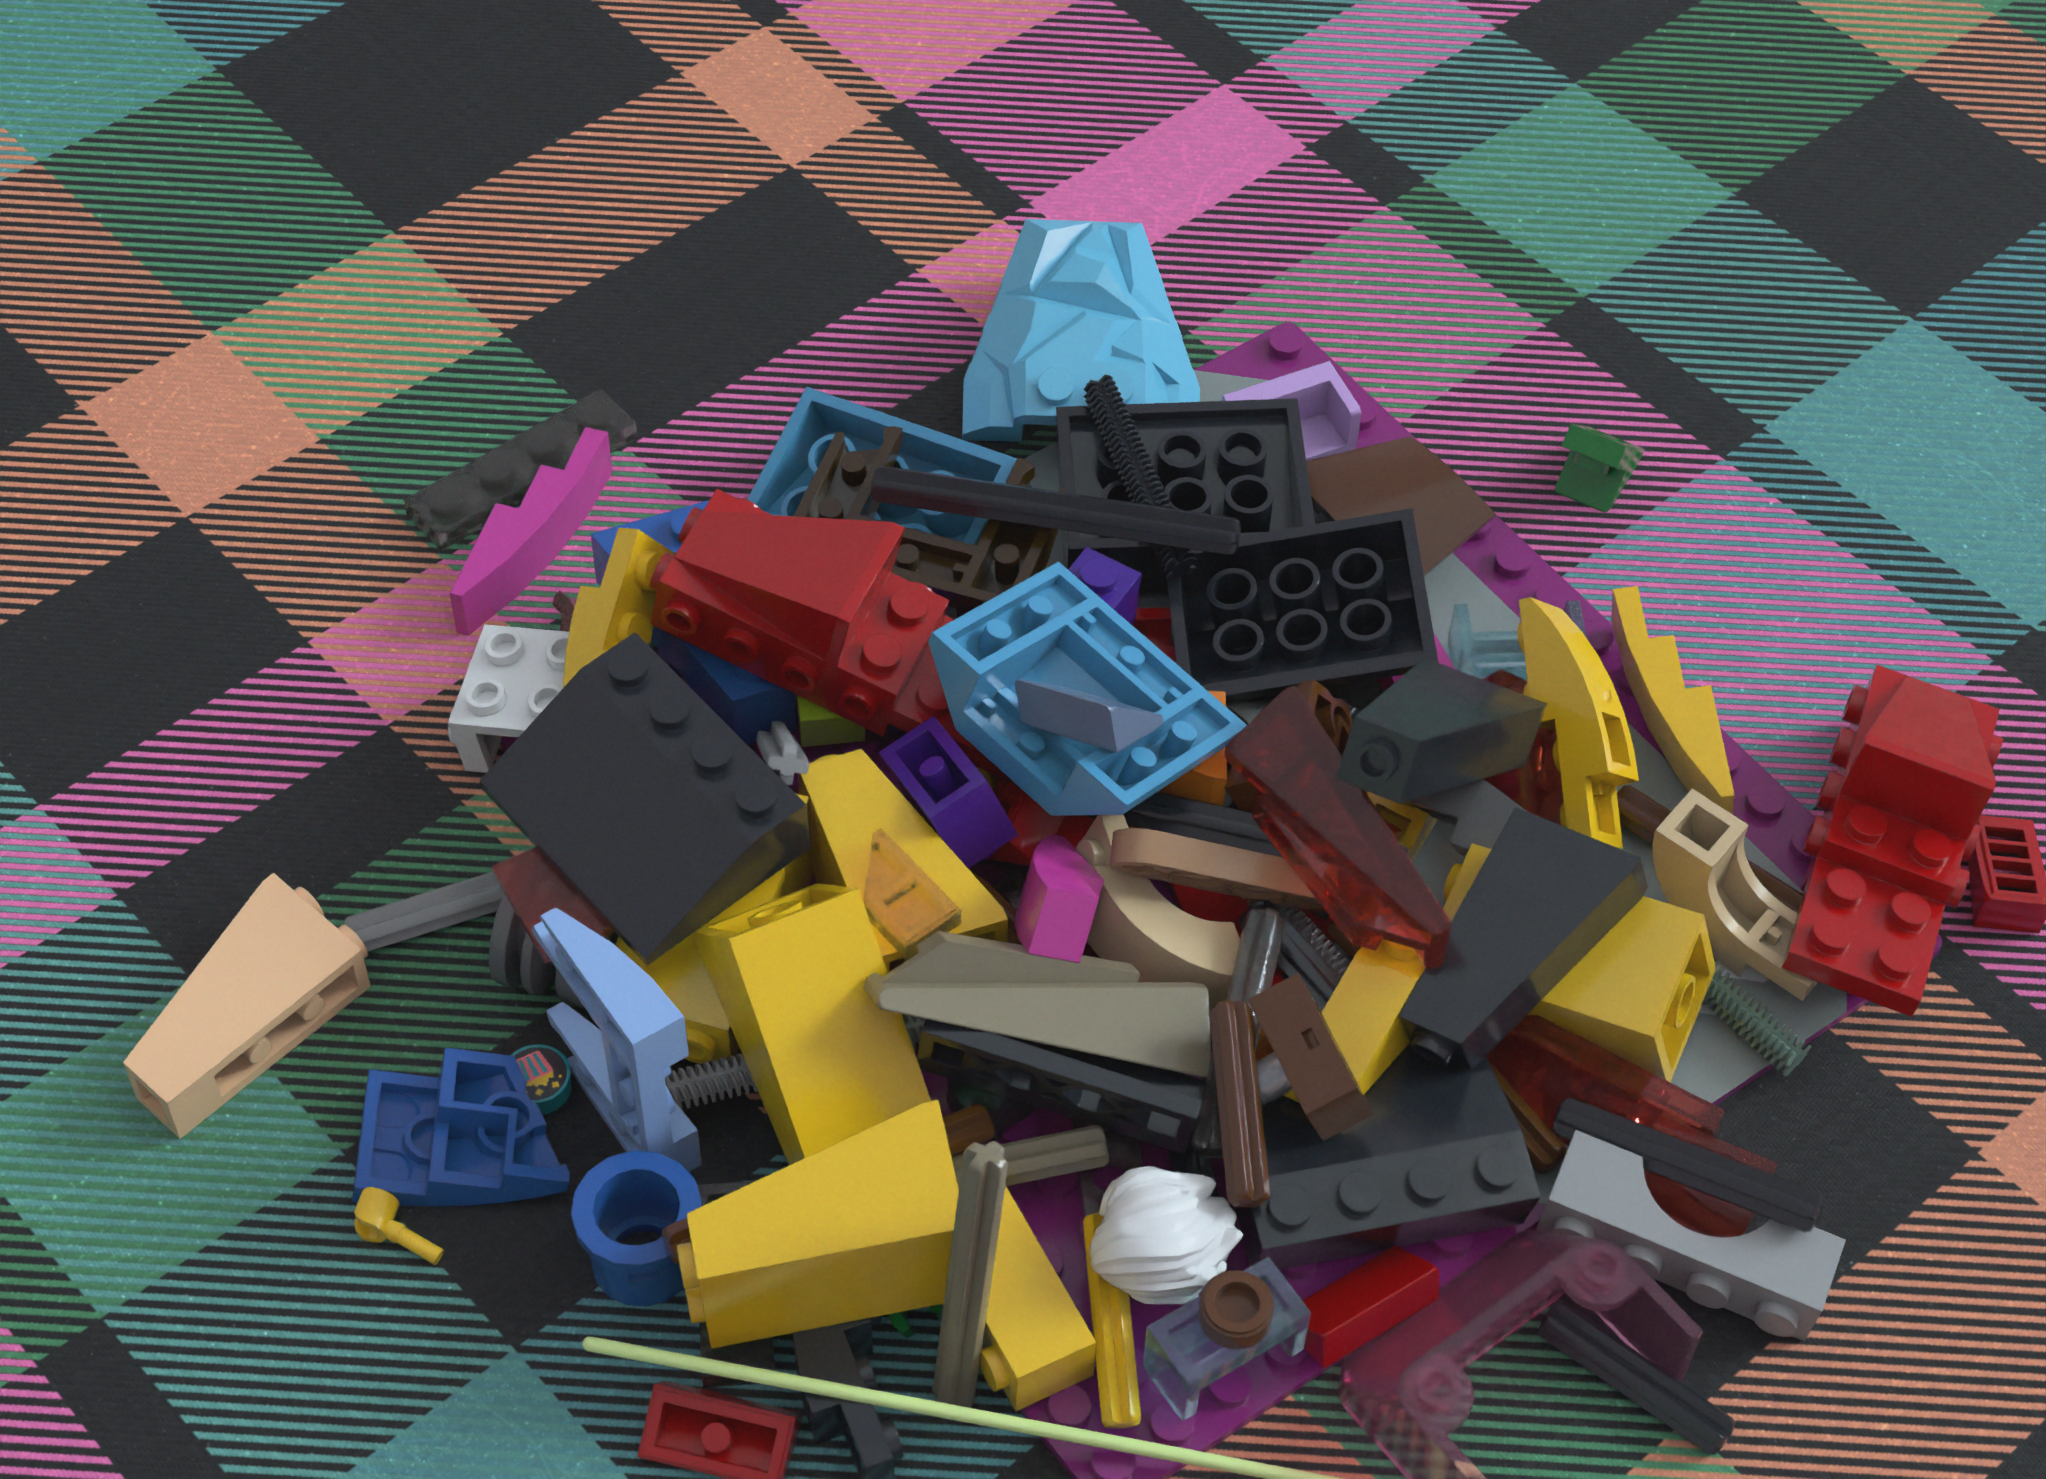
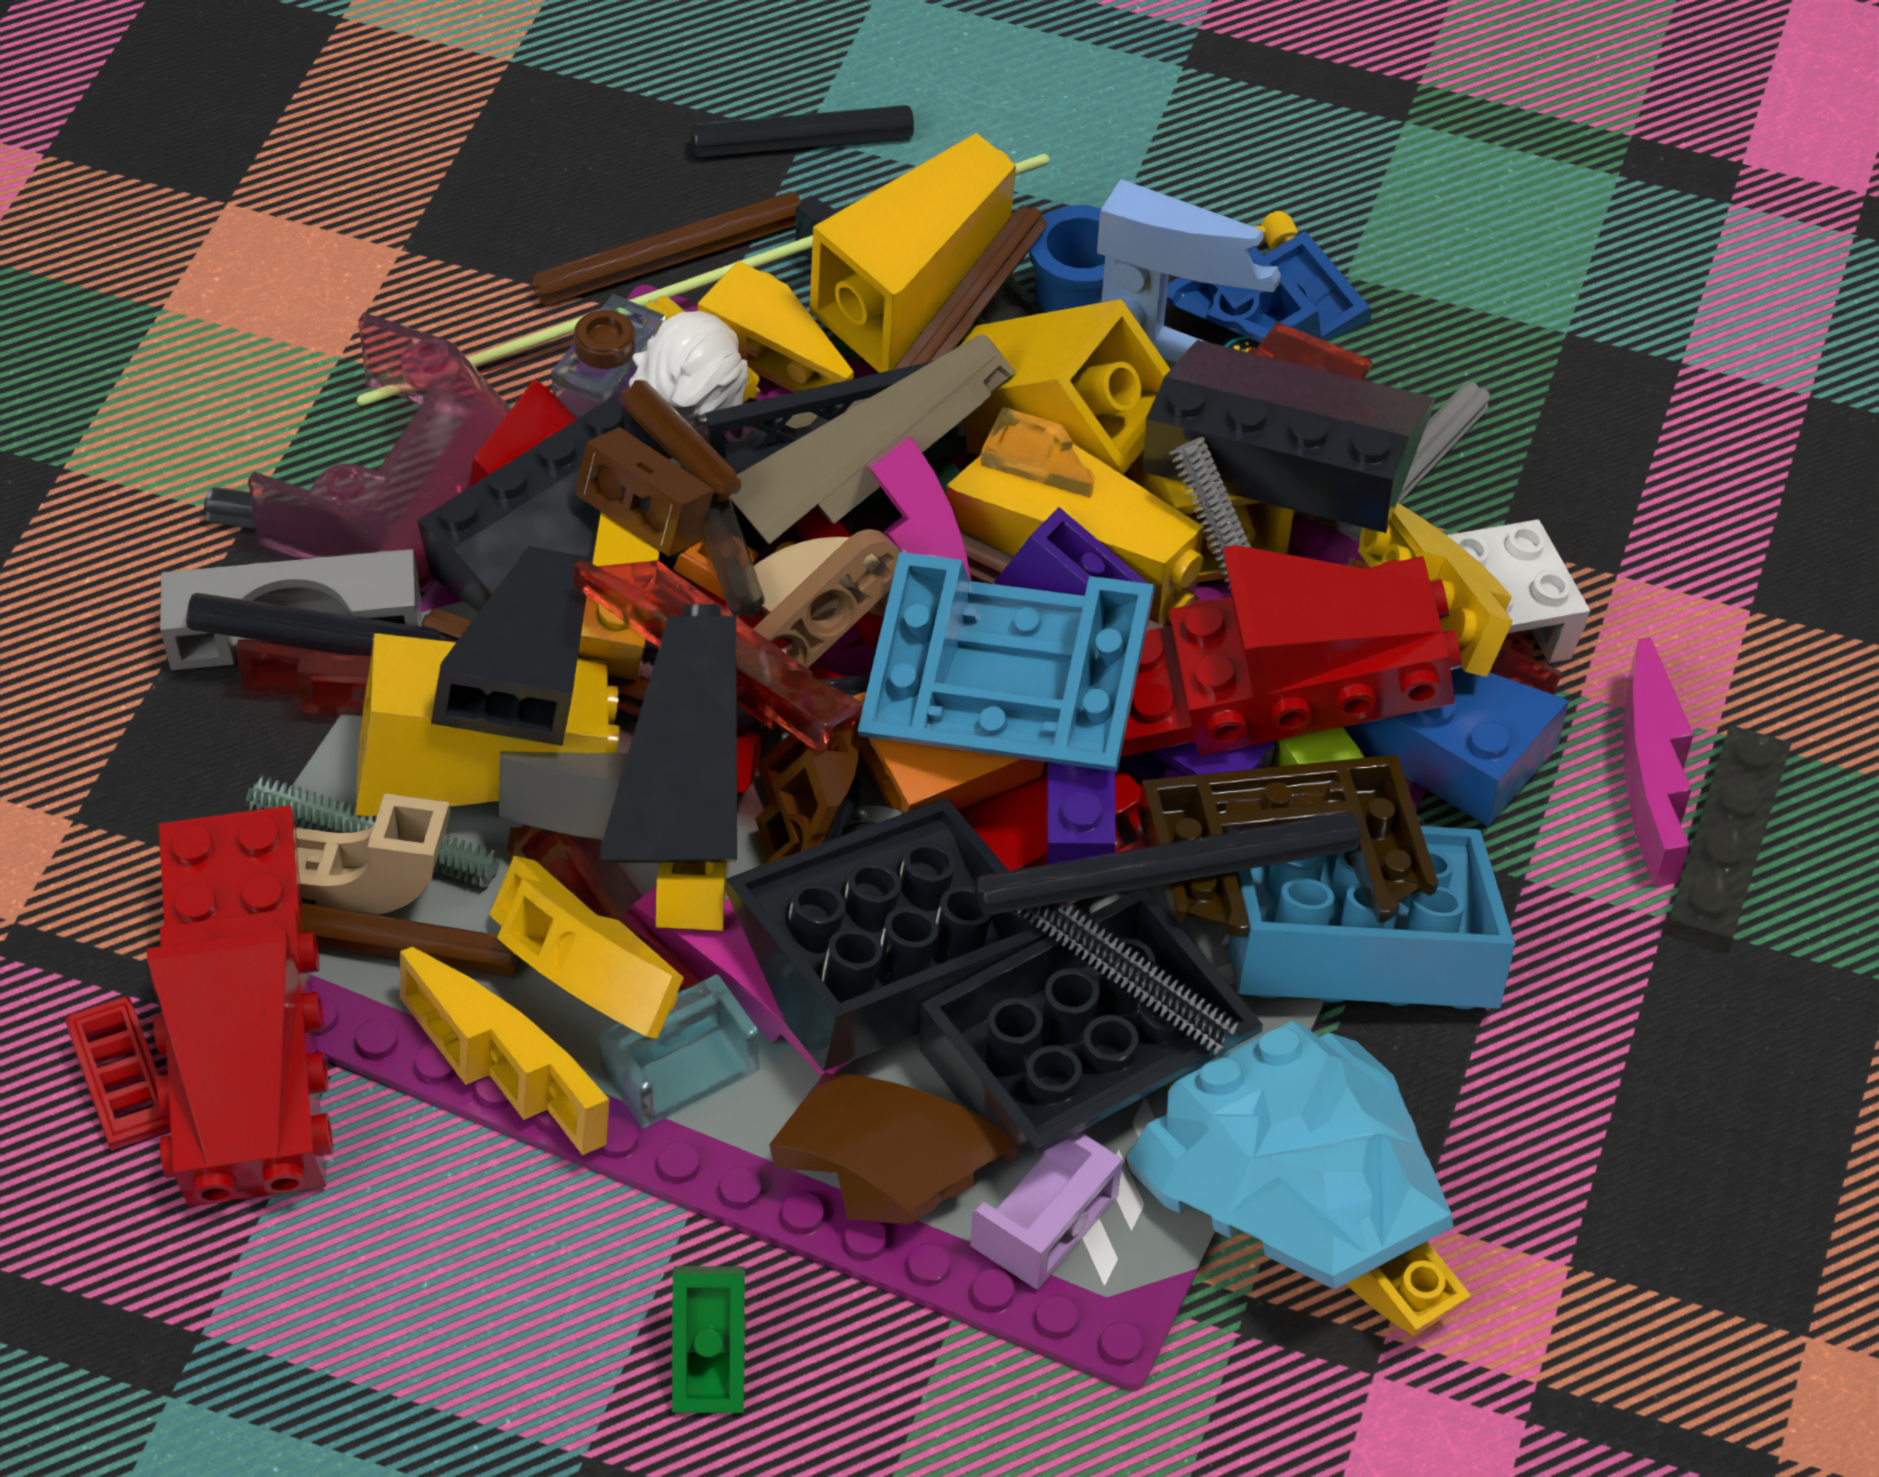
camera: 150 degrees right, 0 degrees up
(246, 1005) = (1500, 309): light nougat slope -> none
(970, 1273) = (799, 216): dark tan axle -> none
(1083, 715) = (988, 620): sand blue slope -> none

